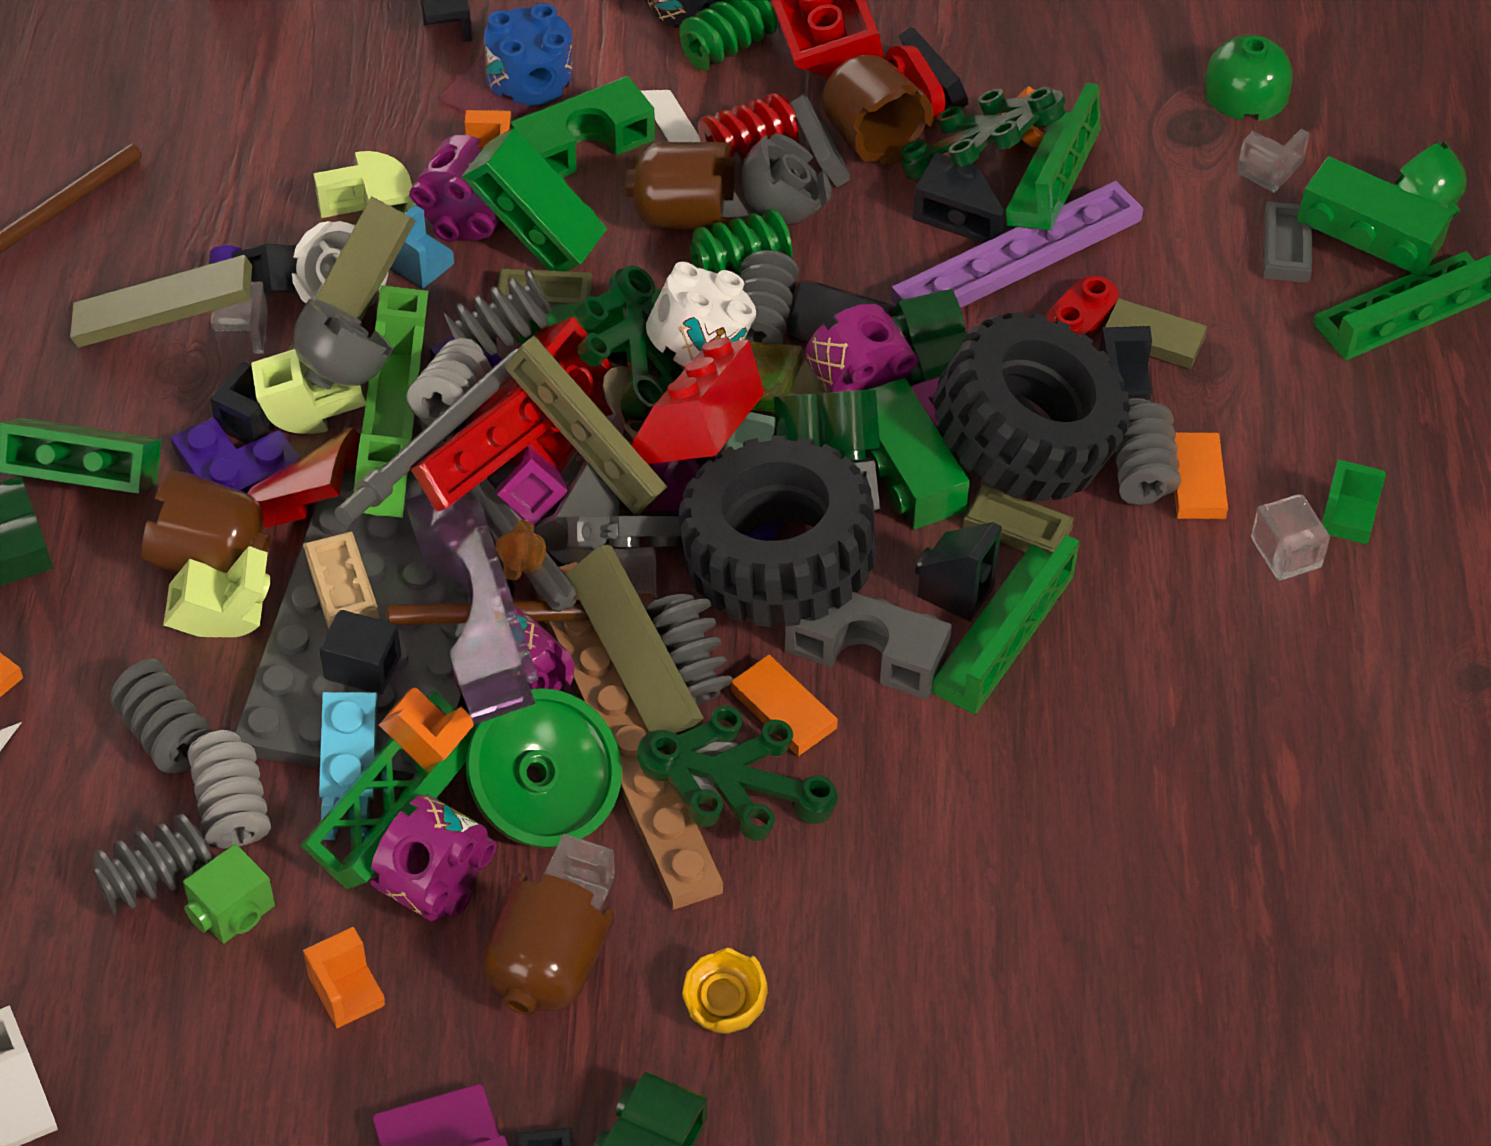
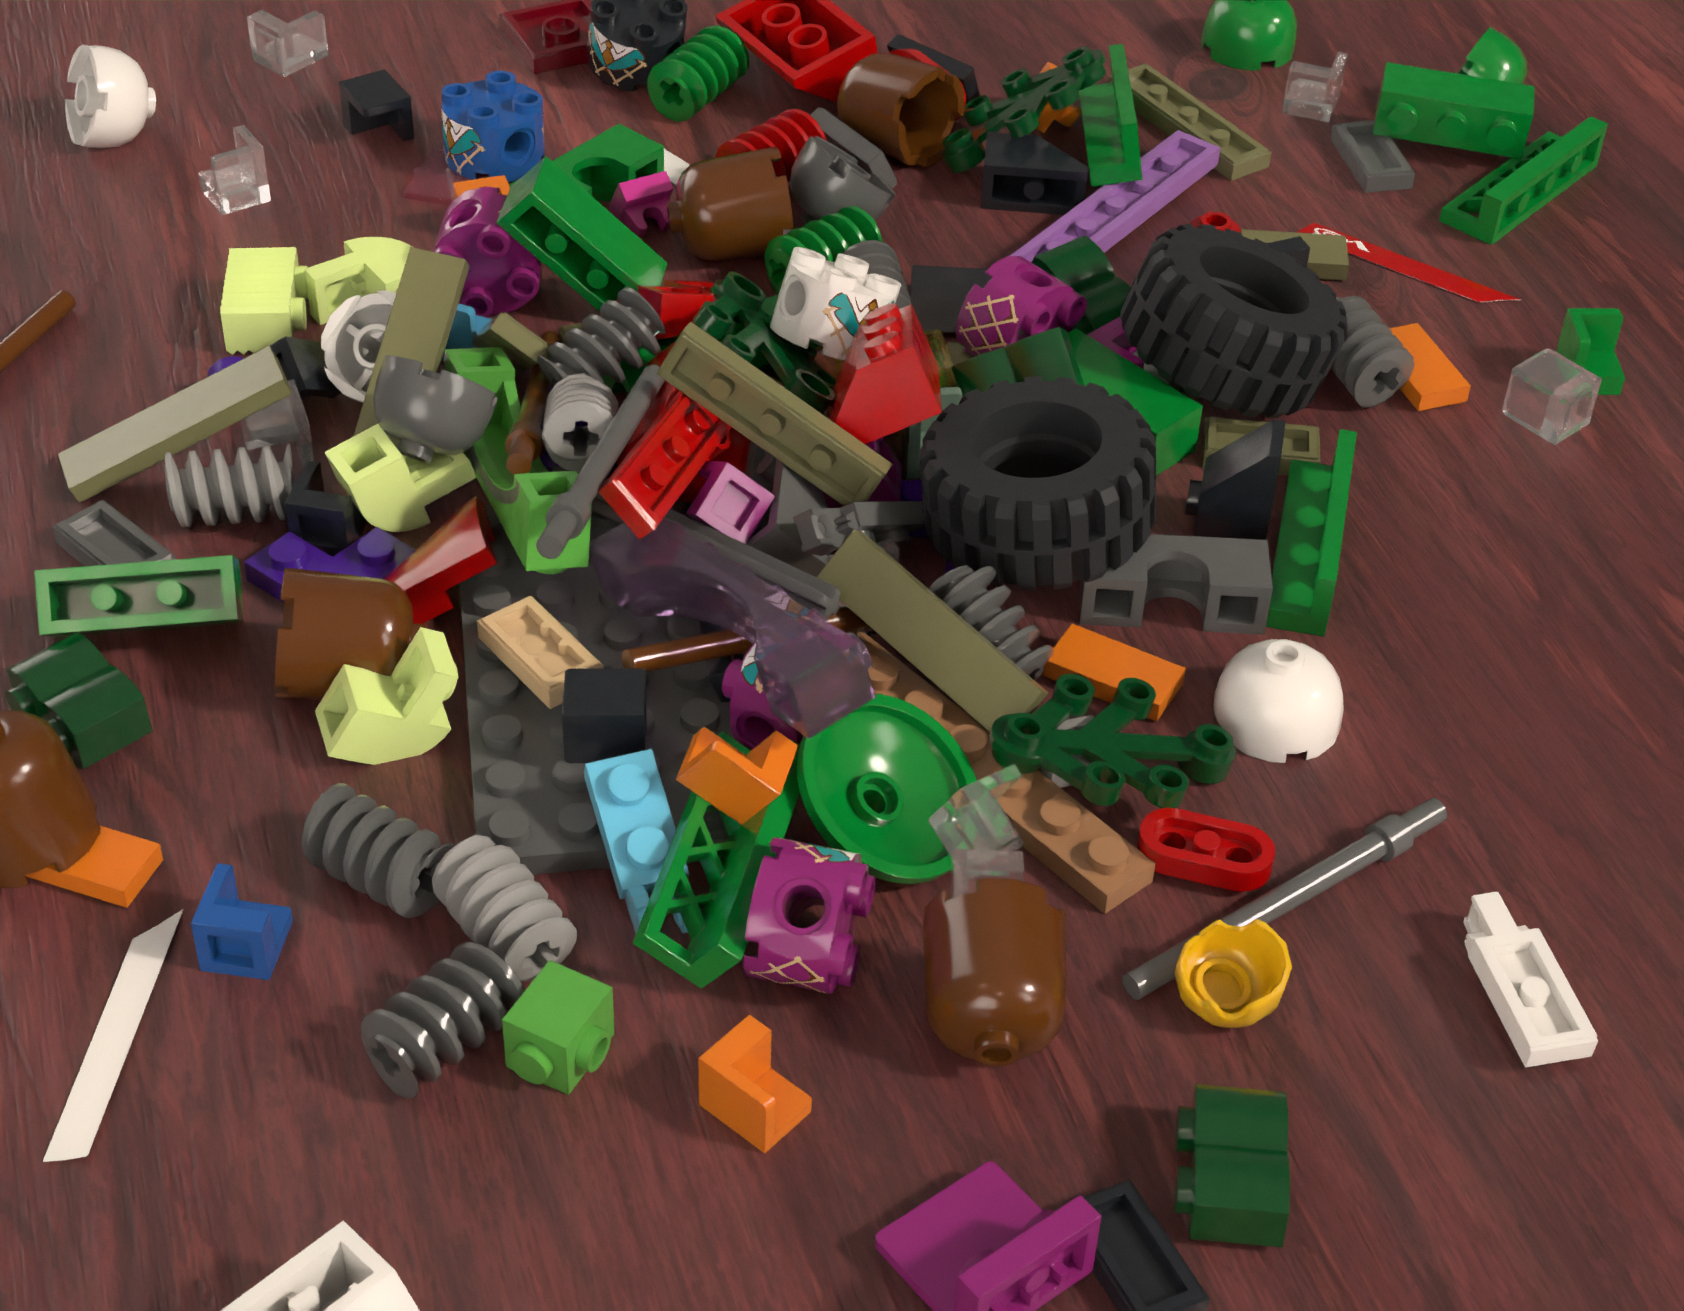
camera: 20 degrees left, 10 degrees down
(46, 751) = (237, 934): none -> blue panel
(85, 395) = (106, 537): none -> dark grey tile
(178, 369) = (229, 486): none -> light grey piece
(277, 190) = (262, 298): none -> yellowish green brick
(308, 60) = (237, 176): none -> clear panel
(394, 393) = (525, 436): none -> reddish brown bar
(440, 287) = (515, 339): none -> olive tile
(521, 550) = (773, 554): clear orange plate -> none
(571, 283) = (677, 302): none -> red slope
(604, 813) = (976, 818): none -> clear panel
(617, 155) = (642, 199): none -> dark pink tile
(772, 880) = (1207, 849): none -> red plate
(896, 768) = (1279, 700): none -> white cylinder
(915, 909) = (1382, 841): none -> dark grey bar
(948, 1064) = (1526, 986): none -> white hinge
(1143, 168) = (1175, 109): none -> olive tile
(1253, 364) = (1413, 268): none -> red sticker

